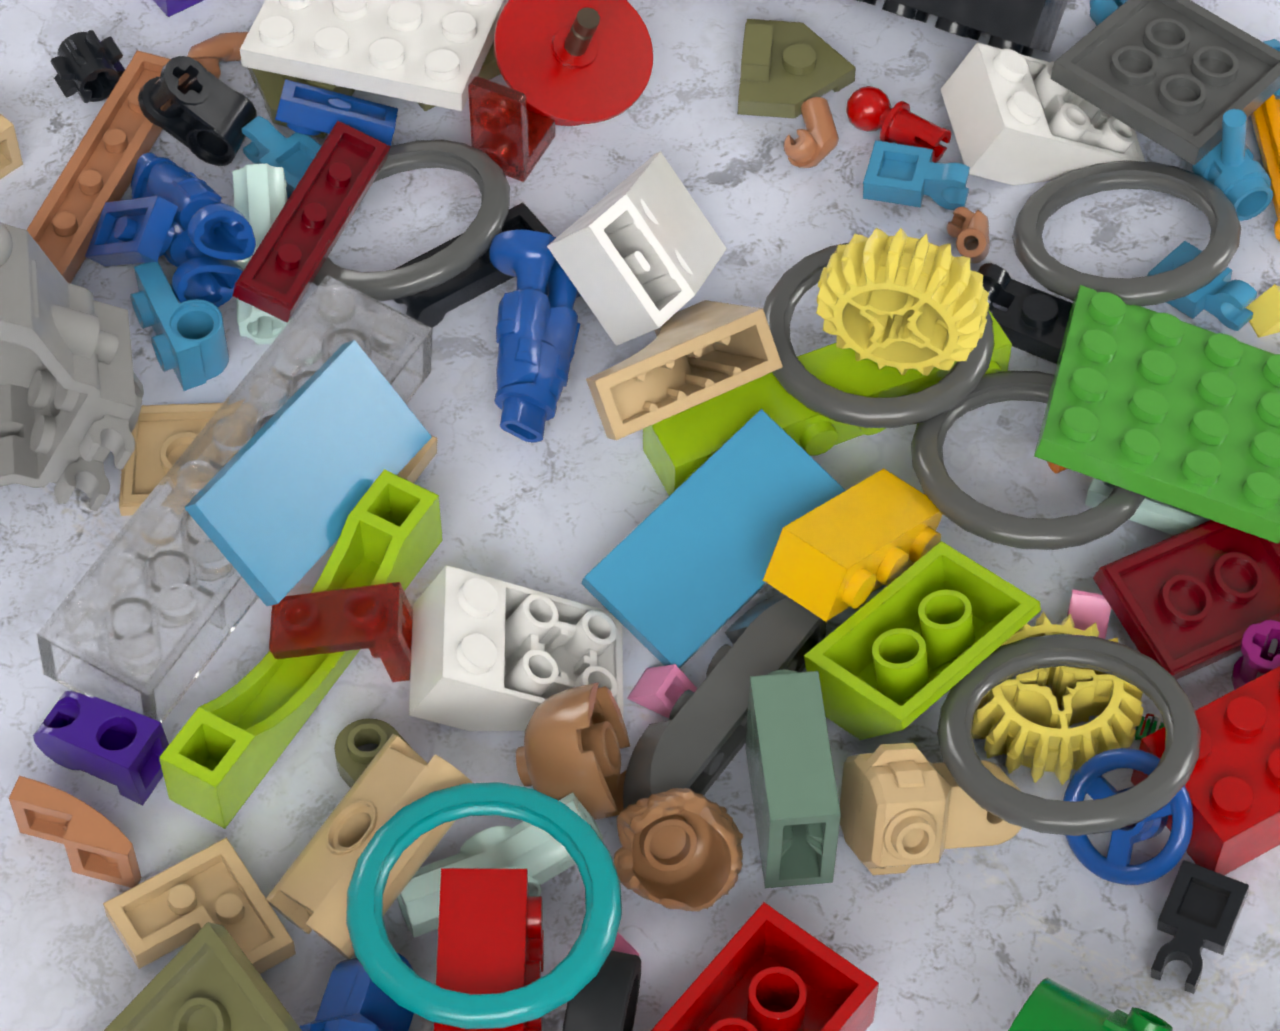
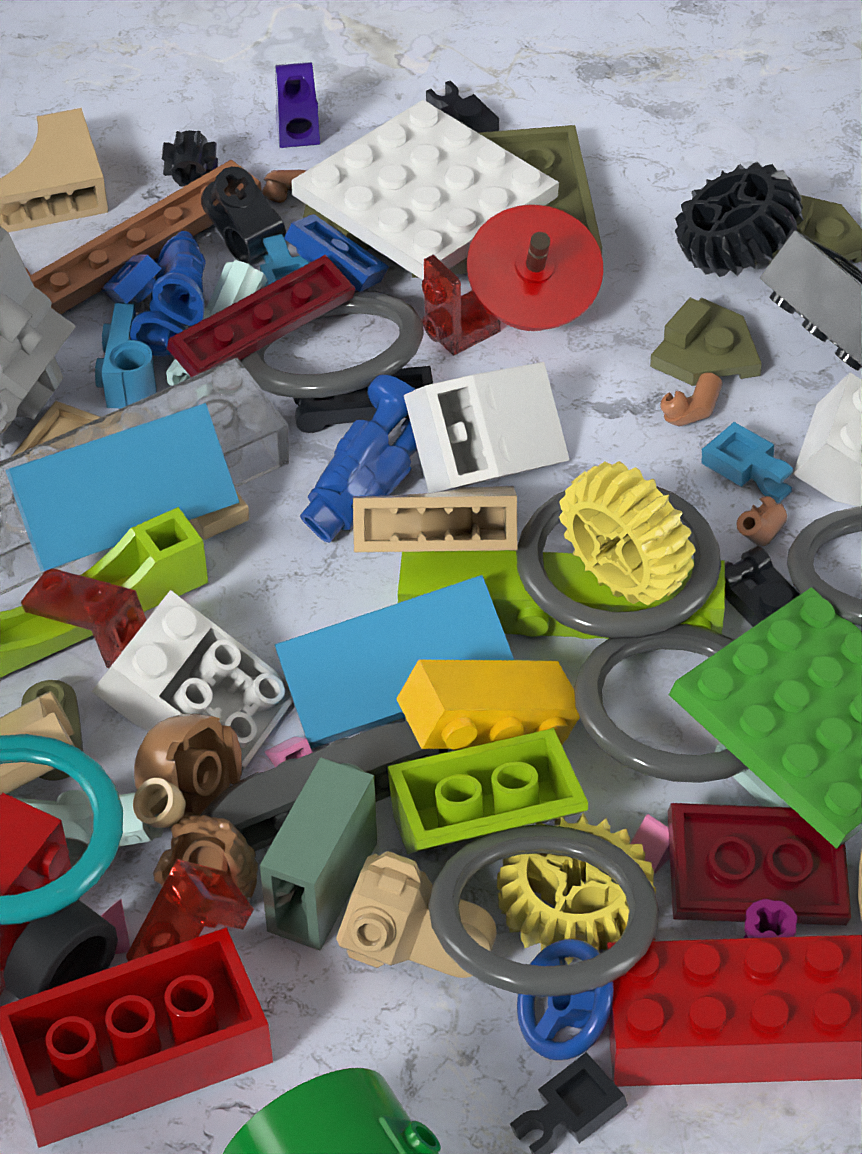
camera: 30 degrees right, 5 degrees down
(594, 794) = (158, 797): none -> tan hinge
(700, 887) = (188, 902): none -> clear red bracket
(871, 110) = (764, 416): red pin -> none

